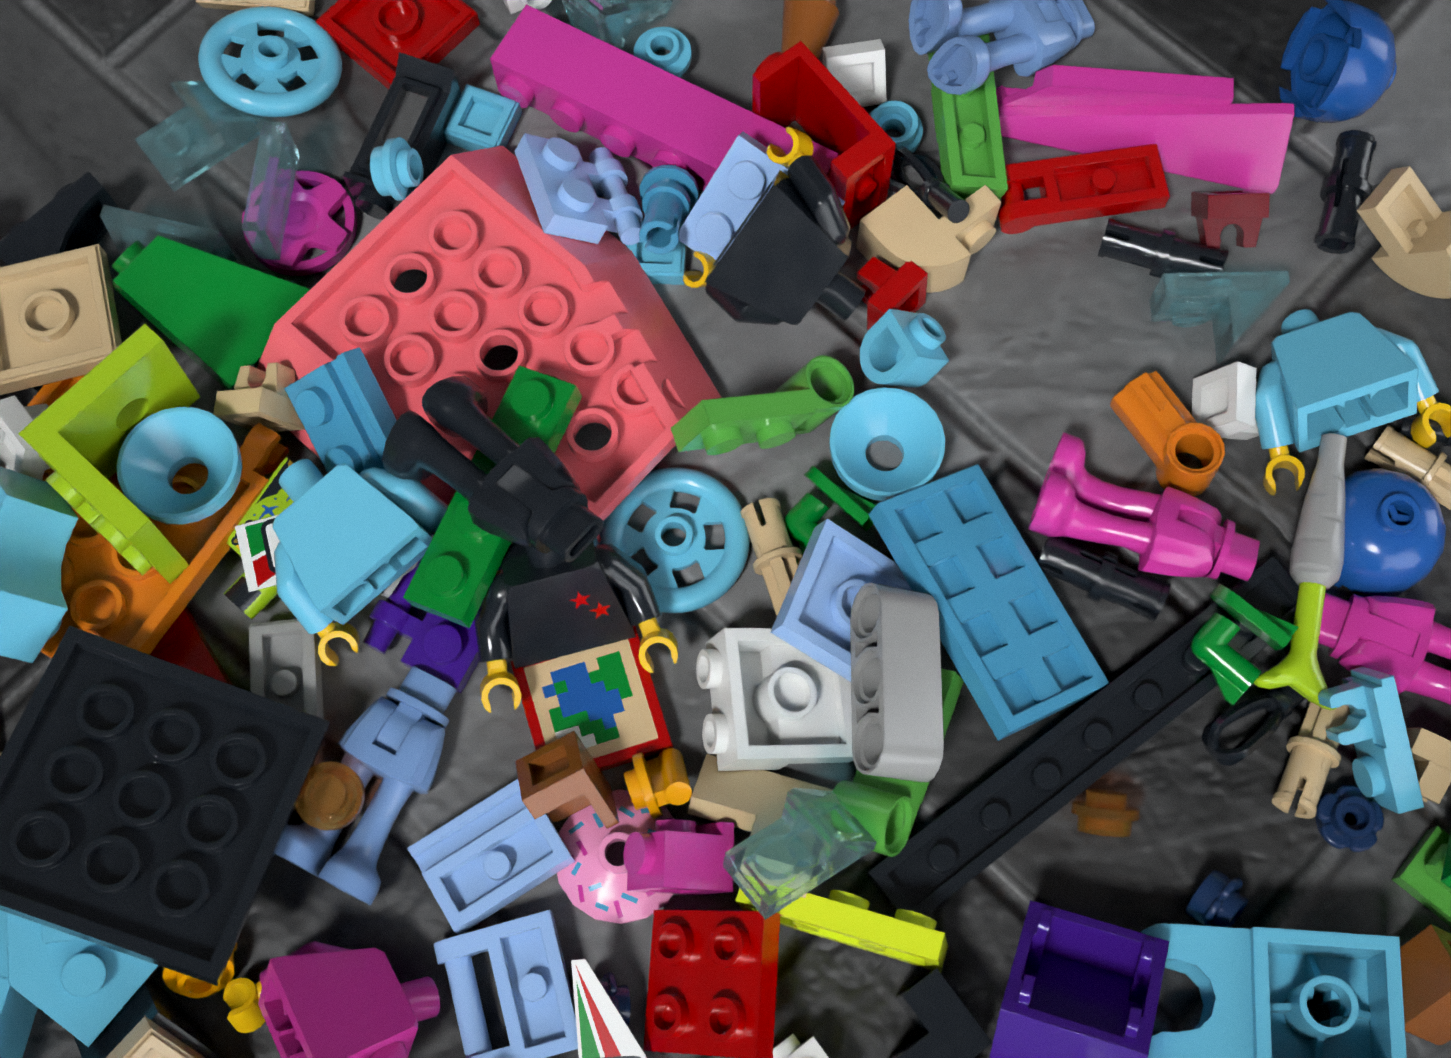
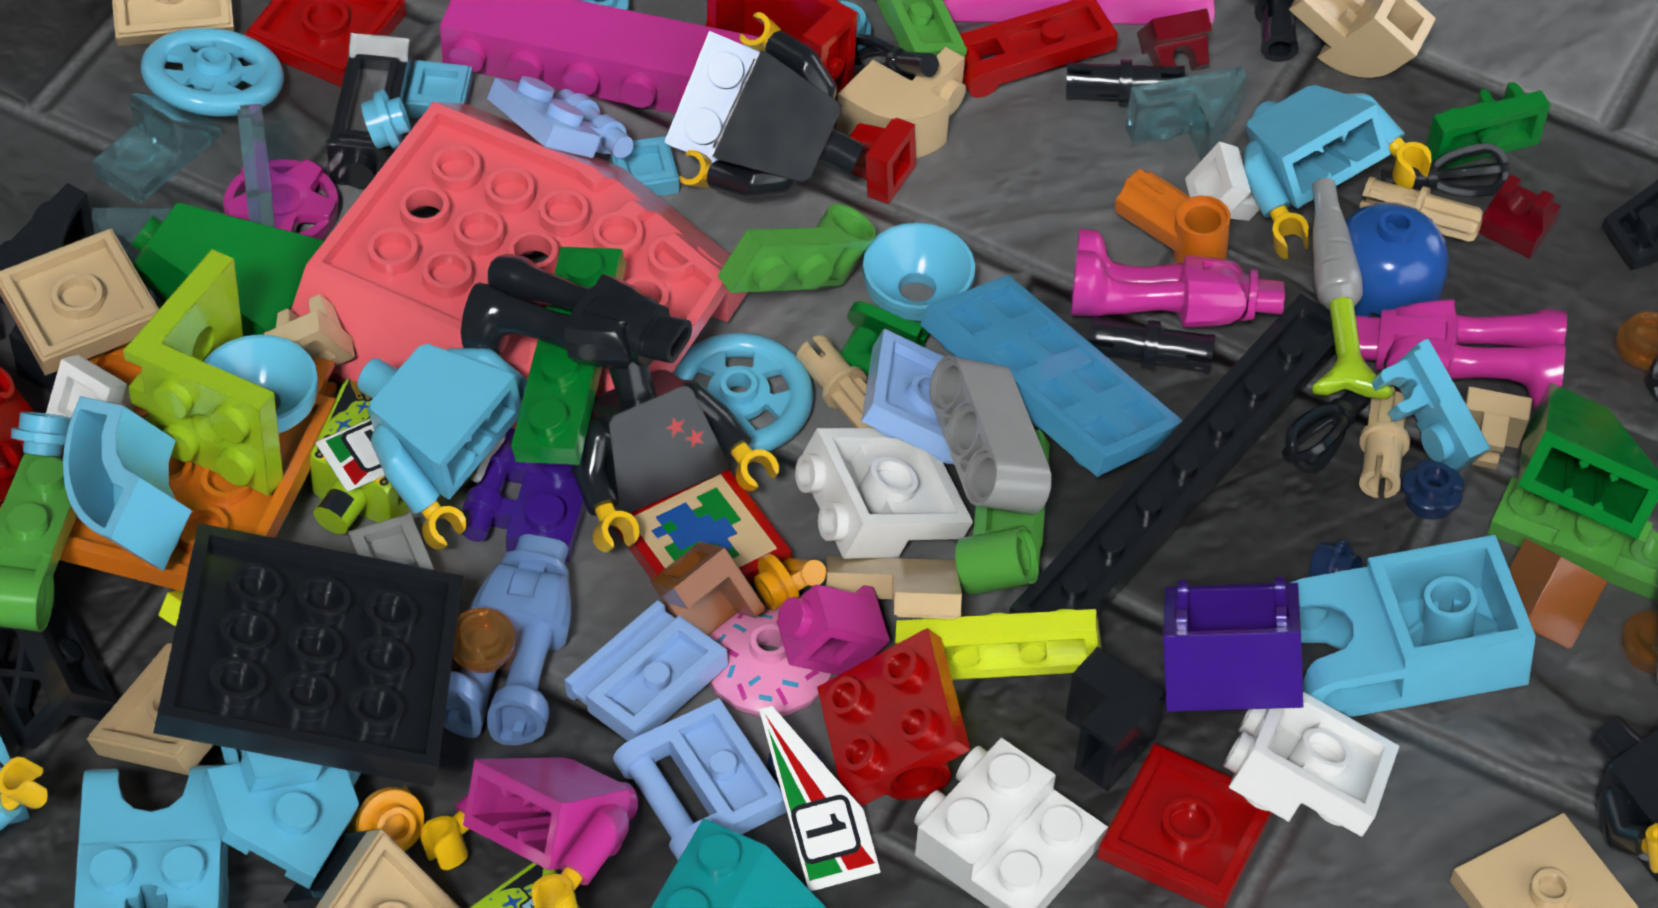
camera: 20 degrees left, 20 degrees down
(344, 412) = (397, 316): dark azure plate -> none
(667, 199) = (647, 116): dark azure pin -> none
(798, 850) = (950, 565): clear light blue slope -> none
(903, 349) = (909, 192): medium azure plate -> none
(1105, 813) = (1212, 523): clear orange plate -> none
(1210, 644) = (1282, 333): green piece -> none

